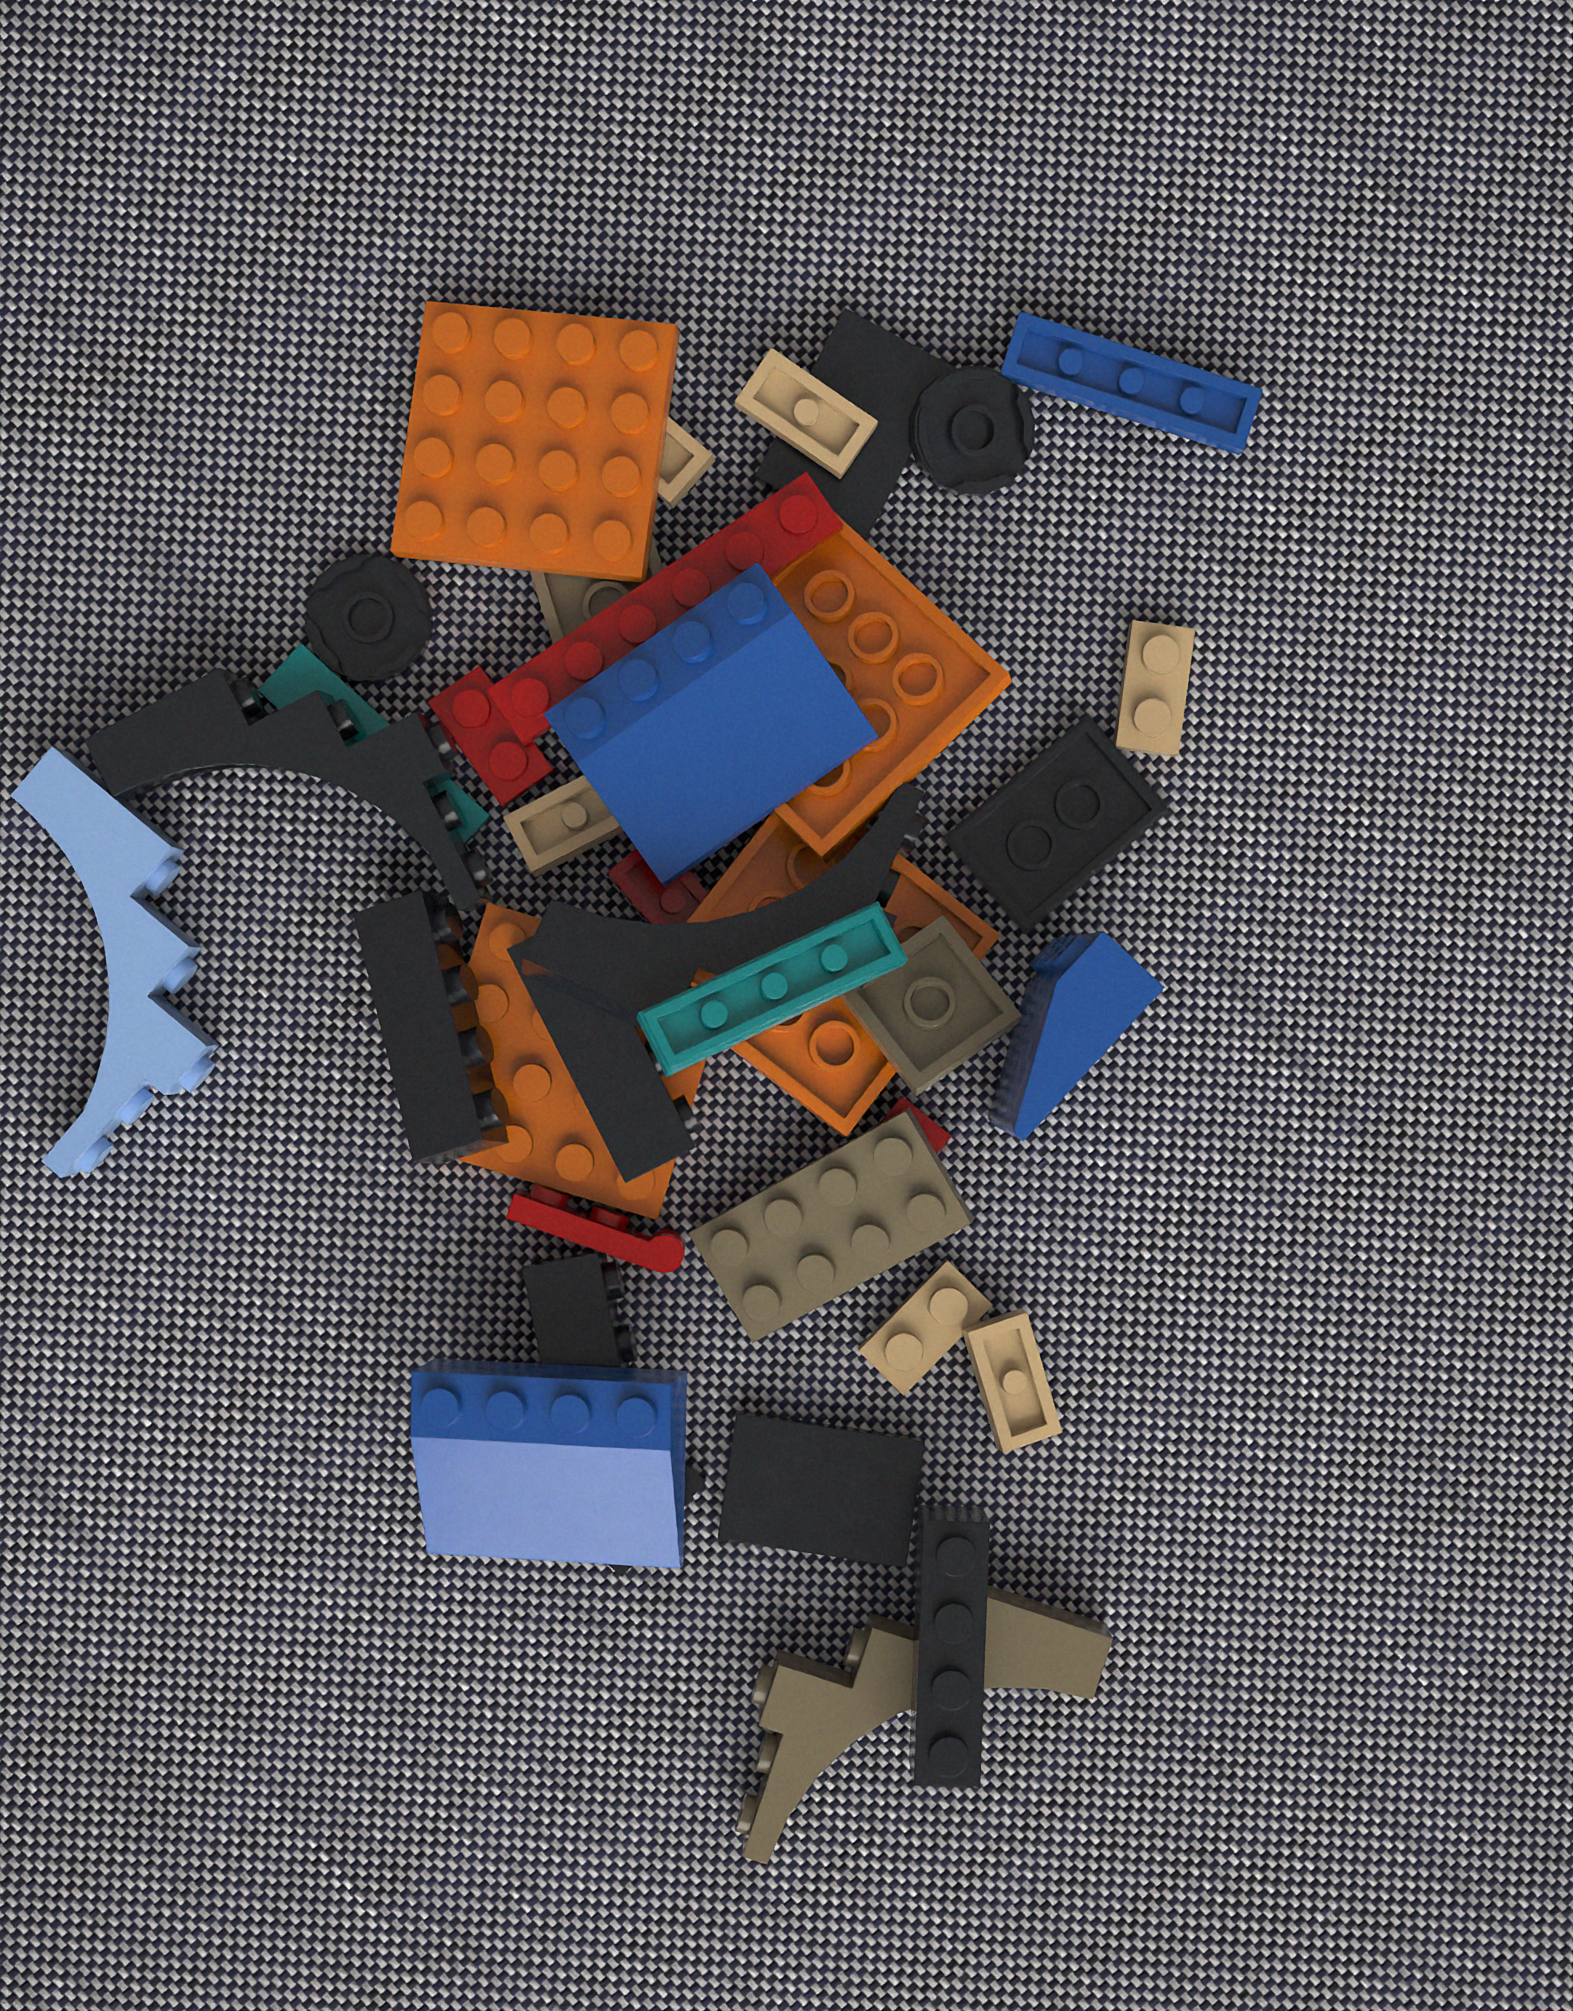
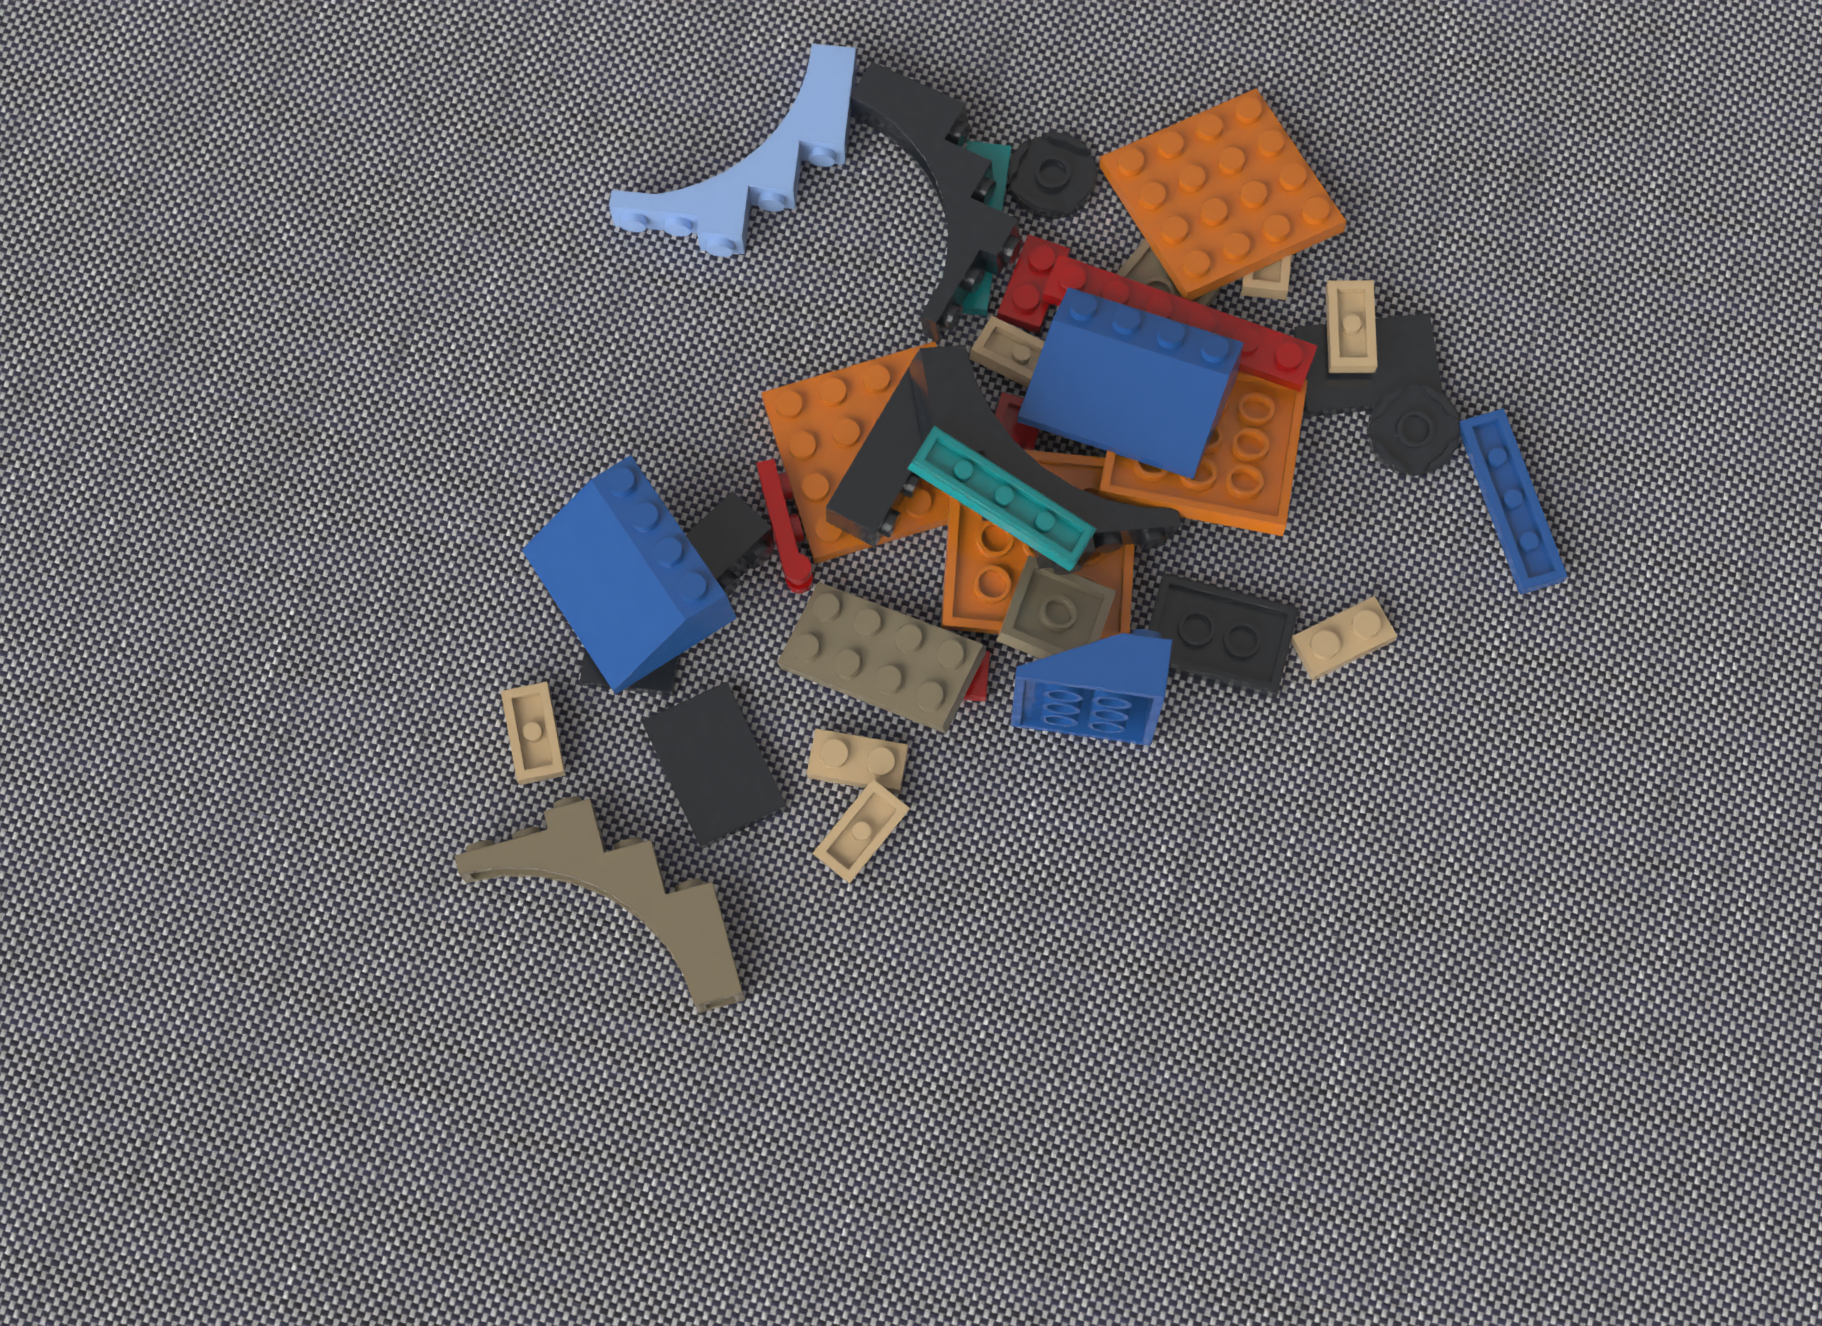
camera: 60 degrees right, 15 degrees down
(432, 1027) = (839, 350): black brick -> none
(649, 1669) = (533, 733): none -> tan plate
(949, 1646) = (673, 881): black brick -> none

